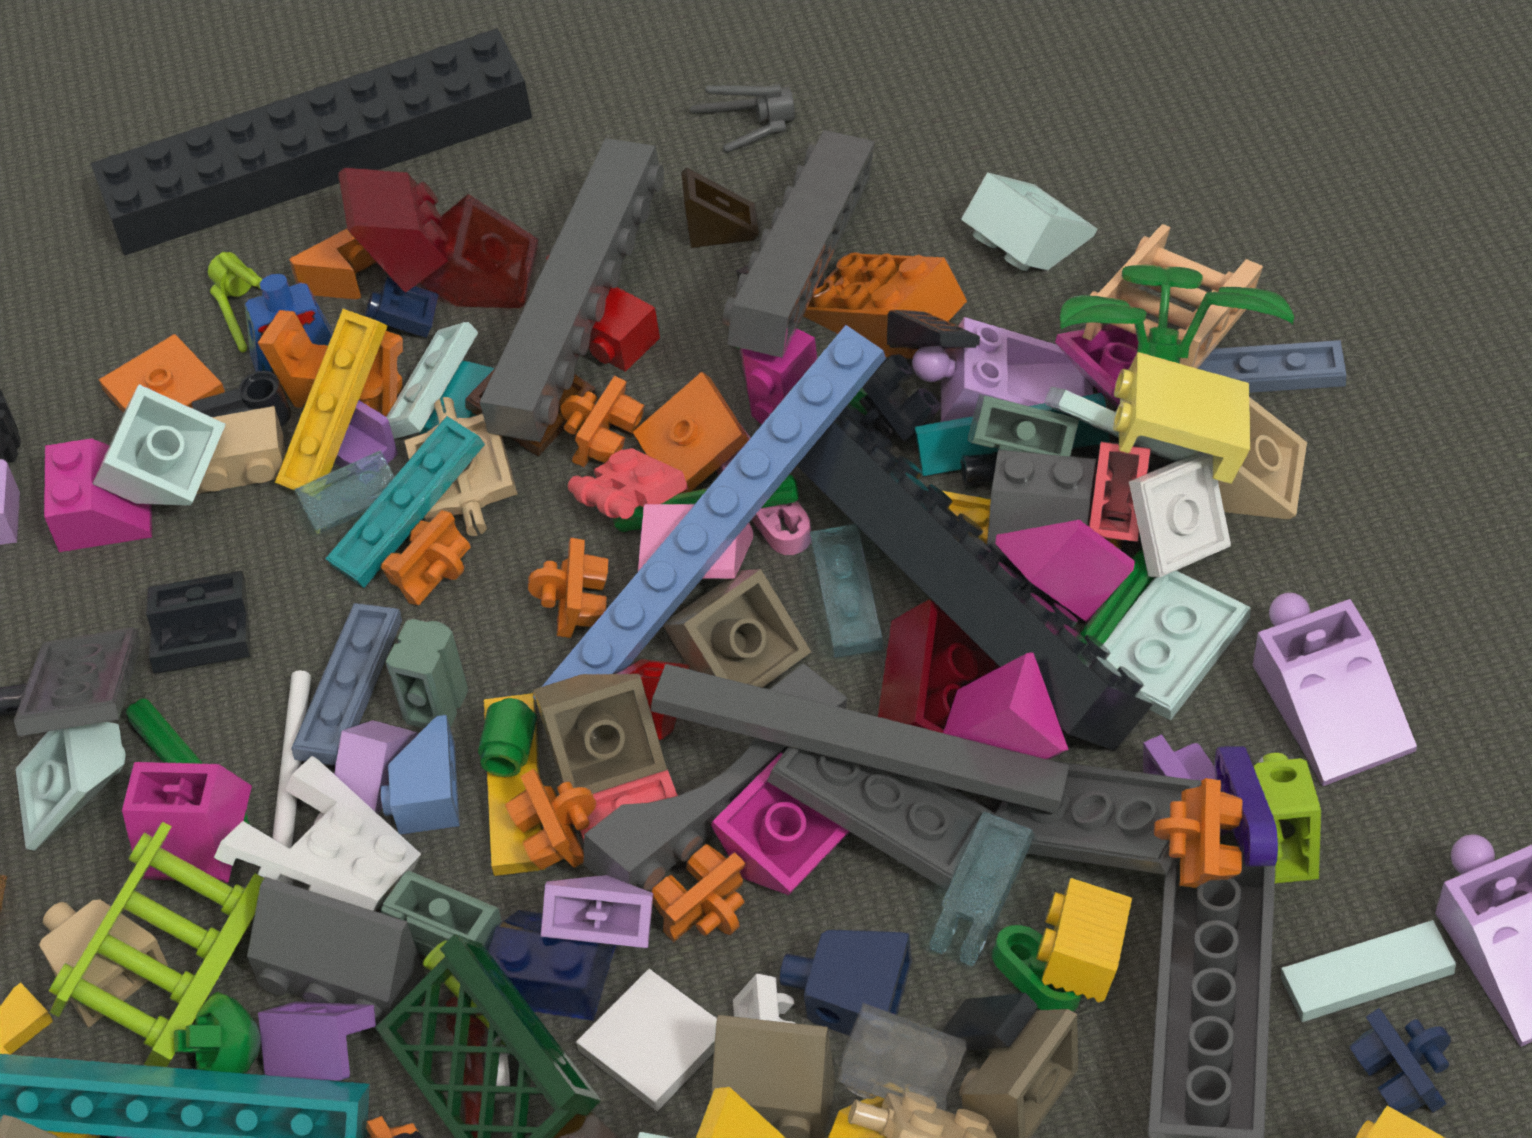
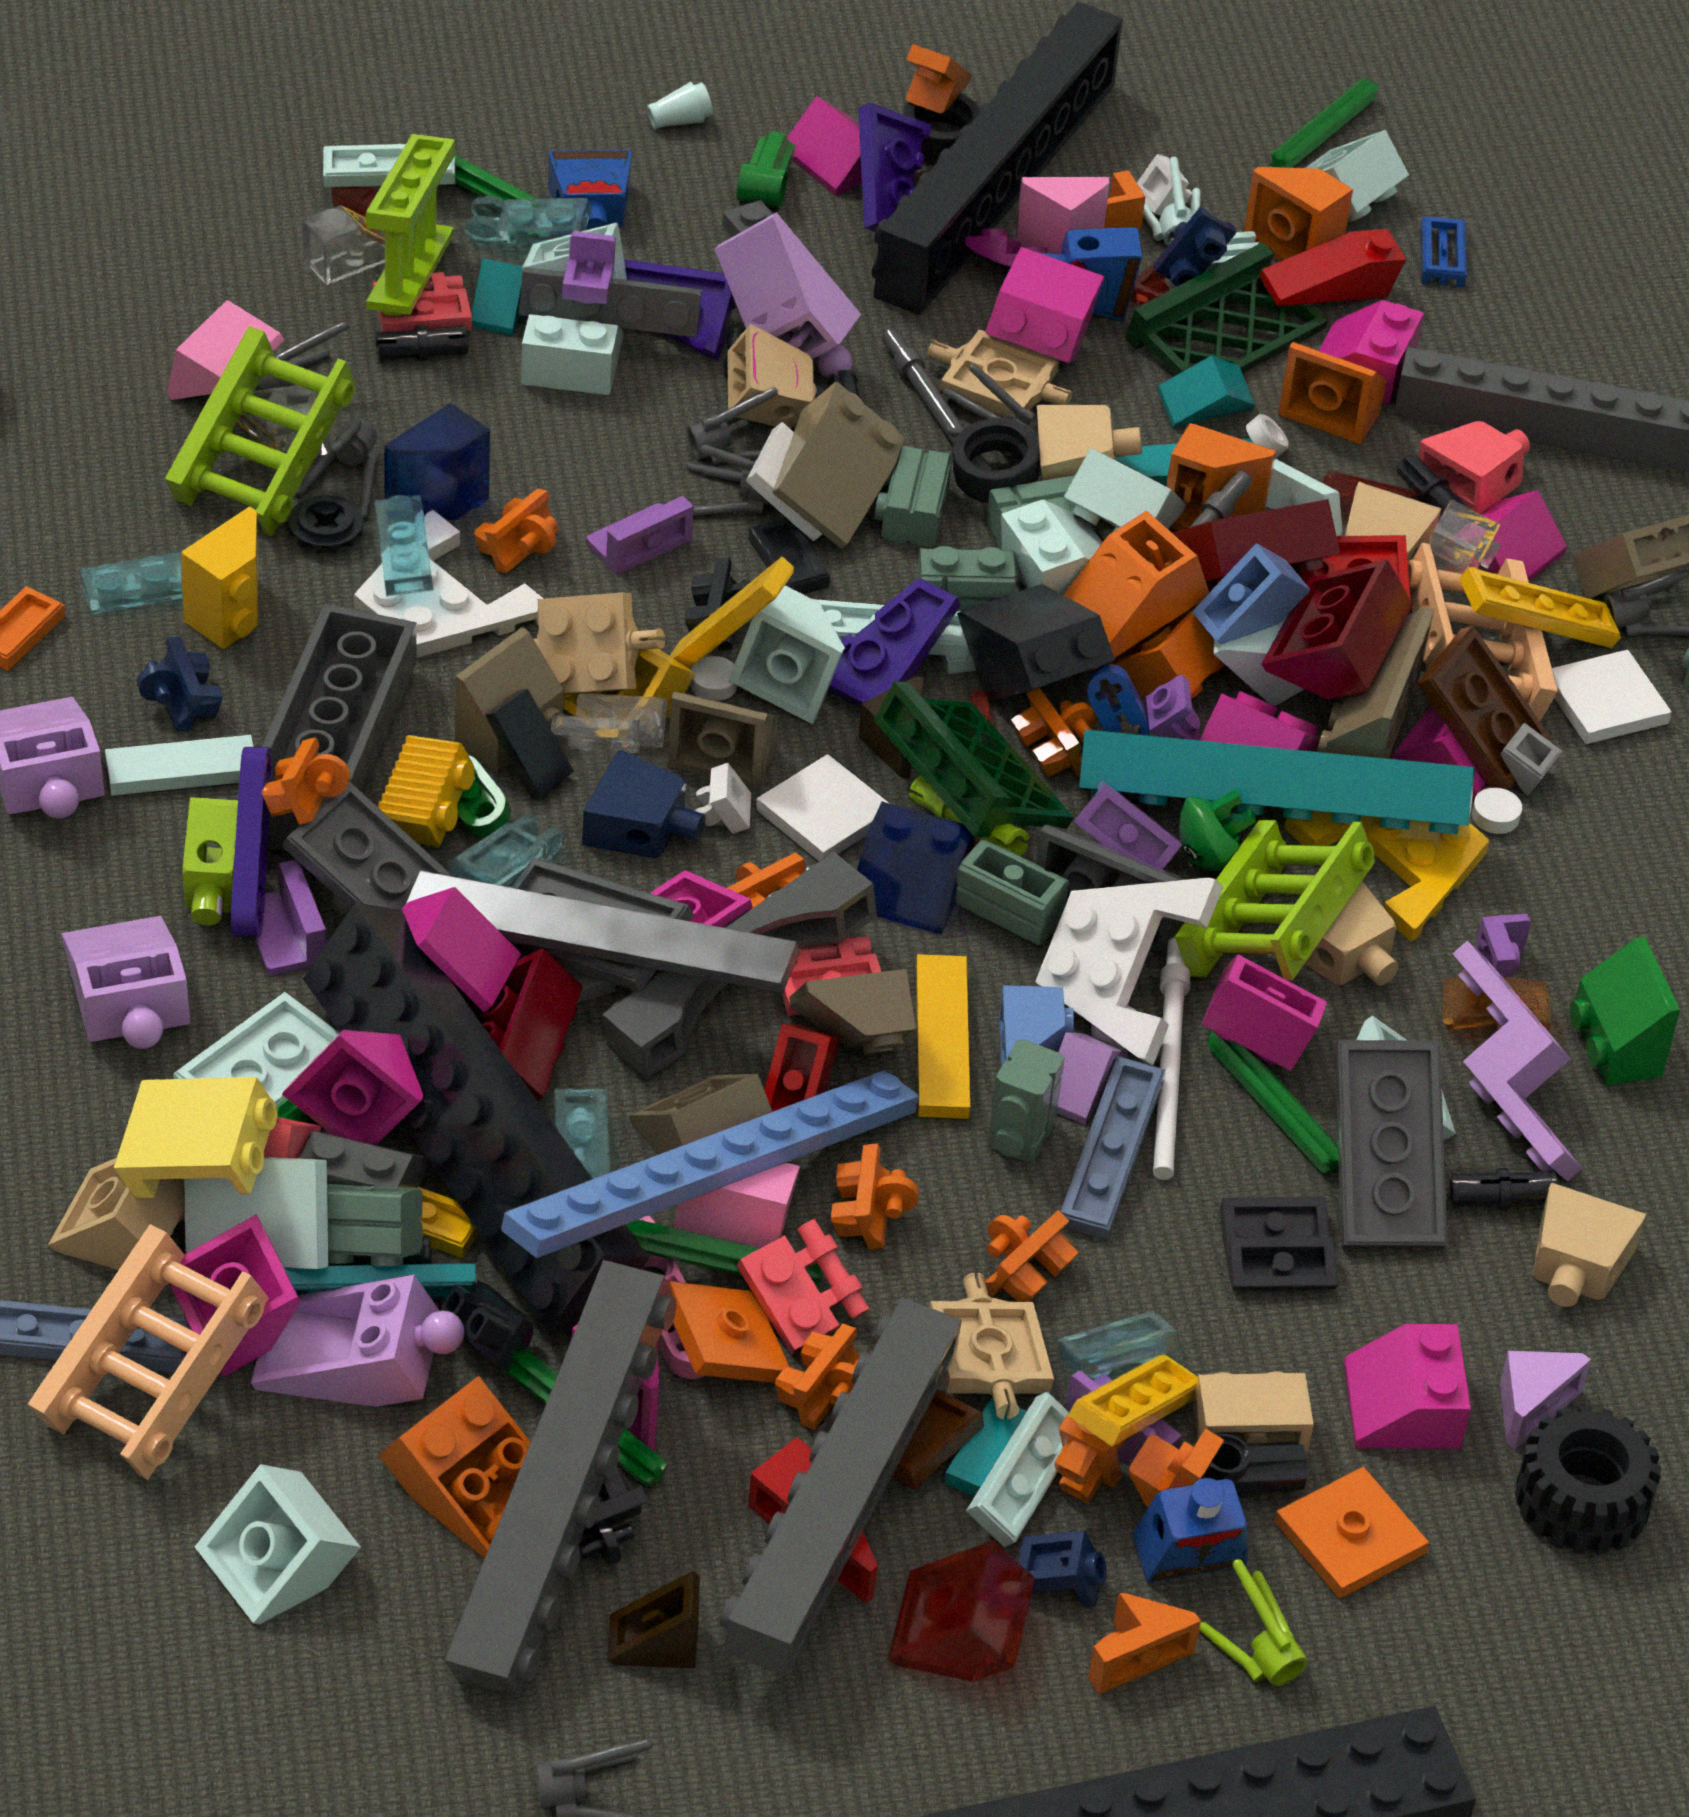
camera: 175 degrees right, 5 degrees down
(159, 451) = (1336, 1364): light aqua slope -> none
(394, 222) = (1067, 1614): dark red slope -> none
(405, 501) = (1050, 1310): teal tile -> none
(507, 737) = (946, 1037): green brick -> none
(556, 814) = (907, 947): orange hips -> none
(597, 911) = (866, 851): lavender slope -> none
(921, 329) = (427, 1362): black slope -> none
(1164, 341) = (168, 1308): green plant -> none

